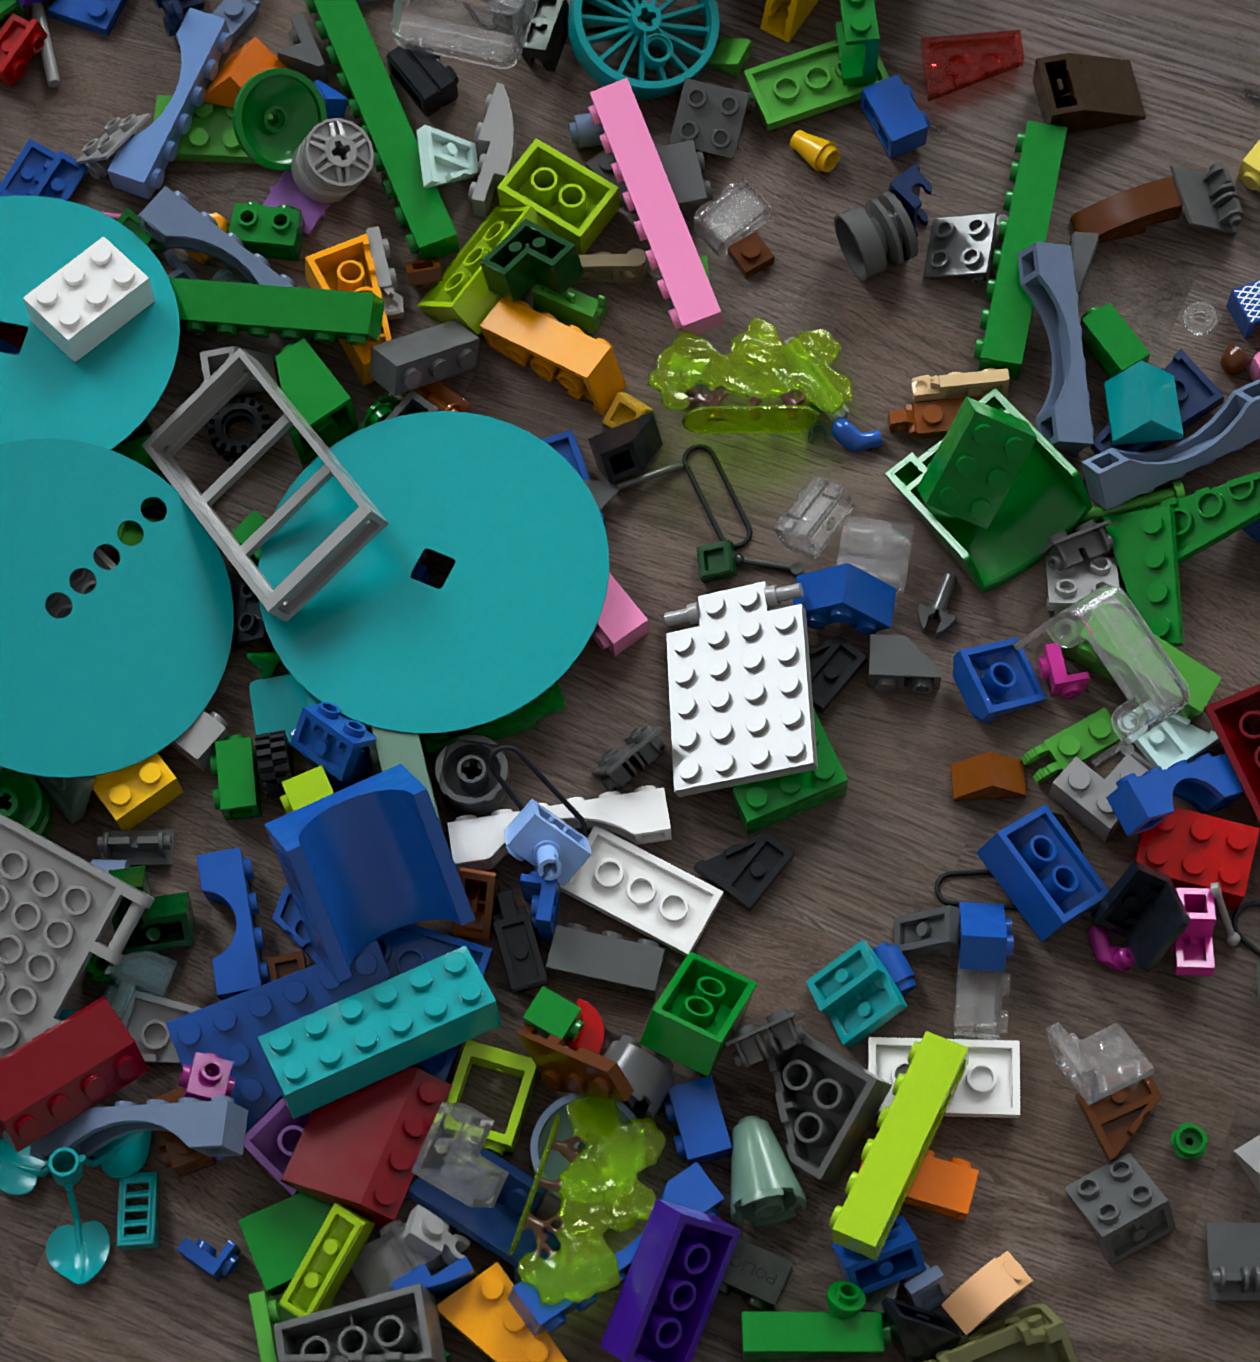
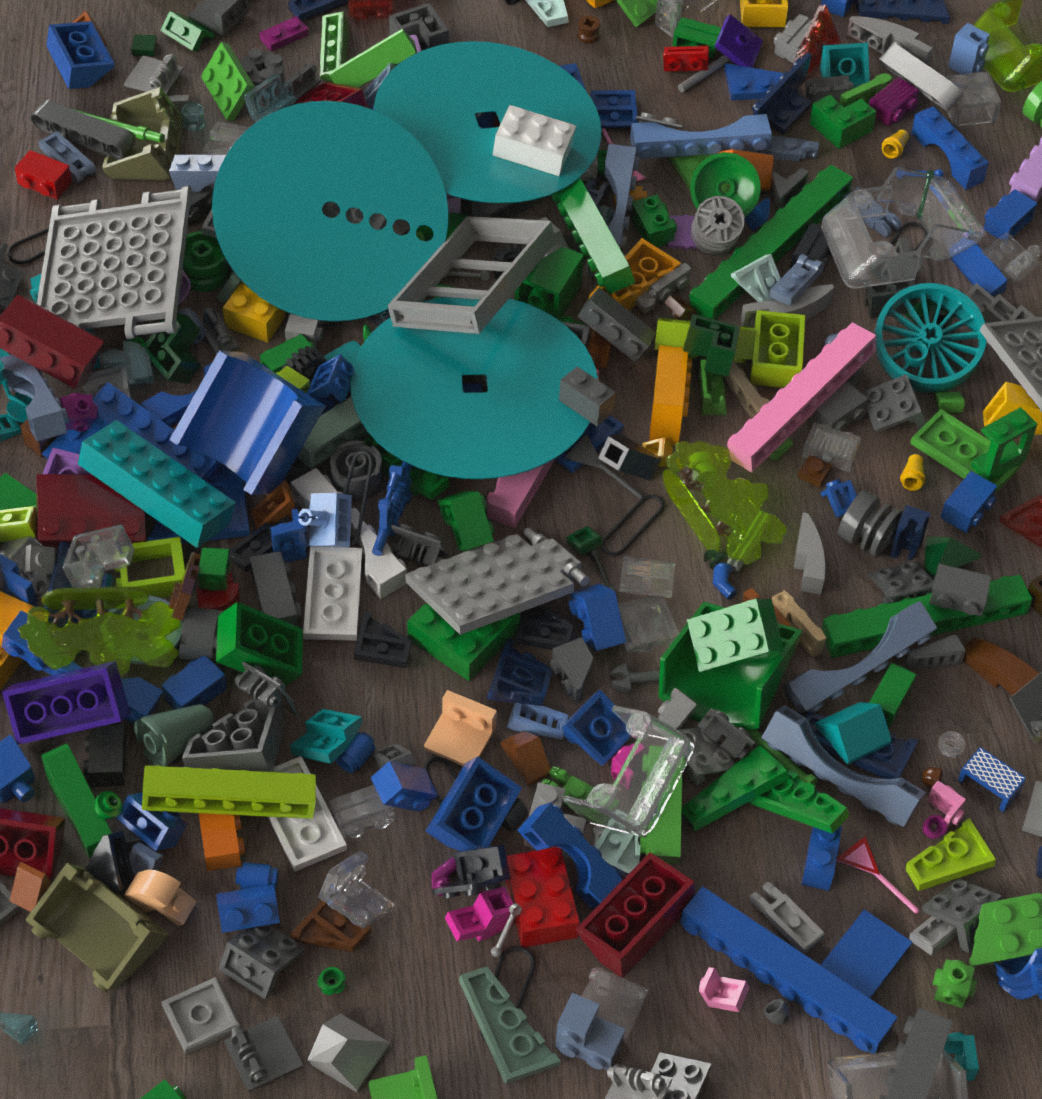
camera: 55 degrees right, 15 degrees down
(472, 119) = (796, 280): none -> sand blue plate
(537, 736) = (393, 505): none -> blue bar
(541, 446) = (587, 396): none -> dark grey brick
(622, 678) = (467, 518): none -> green brick
(809, 245) = (839, 495): none -> blue bracket
(874, 324) = (810, 556): none -> light grey slope
(888, 732) = (519, 677): none -> dark blue wing
(924, 837) = (461, 729): none -> light nougat bracket
(933, 761) = (535, 727): none -> light blue slope
(955, 183) = (946, 552): none -> dark green slope
(1013, 1164) = (256, 875): none -> blue brick
(1021, 584) = (677, 711): none -> light grey brick
(1027, 193) = (960, 590): none -> dark grey brick
(1056, 1194) = (247, 908): none -> blue brick
(1163, 1313) = (200, 1015): none -> light grey tile

